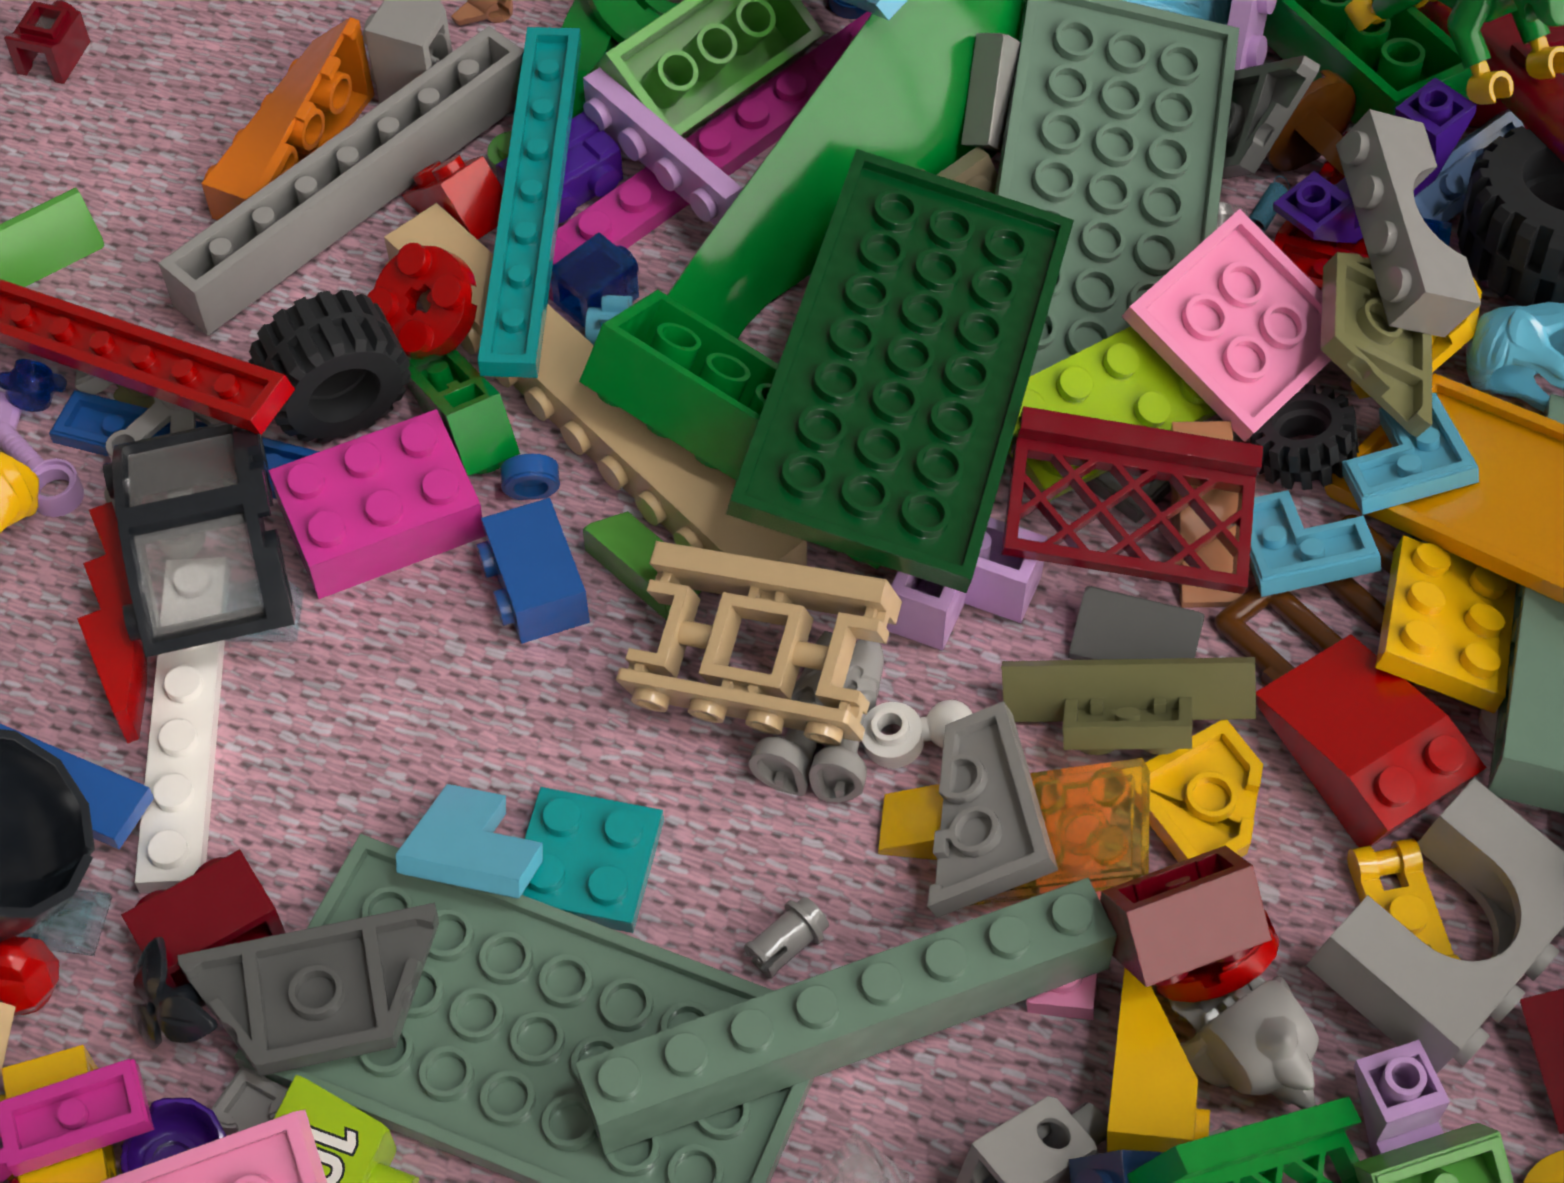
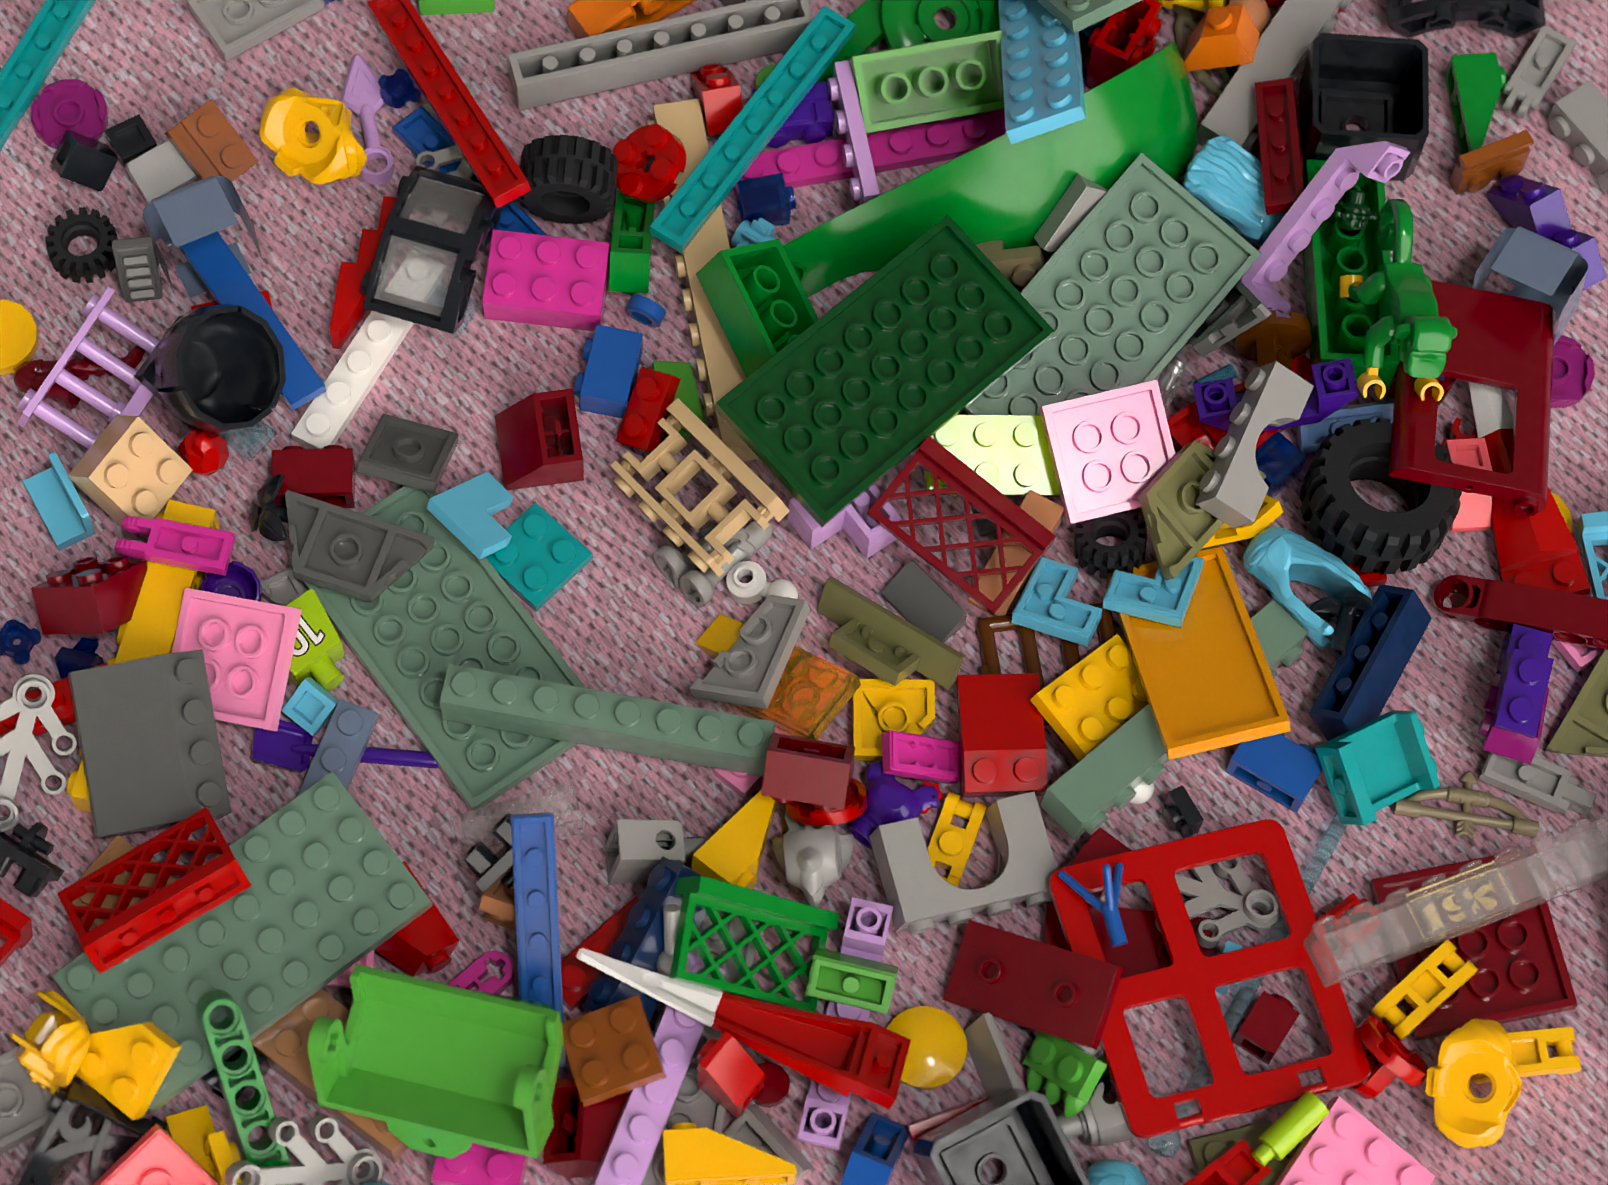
camera: 25 degrees right, 10 degrees up
(321, 817) = (408, 453): none -> dark grey tile
(499, 701) = (540, 441): none -> dark red slope
(616, 588) = (647, 405): none -> red plate
(787, 936) = (612, 661): light grey pin -> none
(1285, 824) = (920, 757): none -> dark pink plate
(1301, 910) = (891, 802): none -> dark purple animal

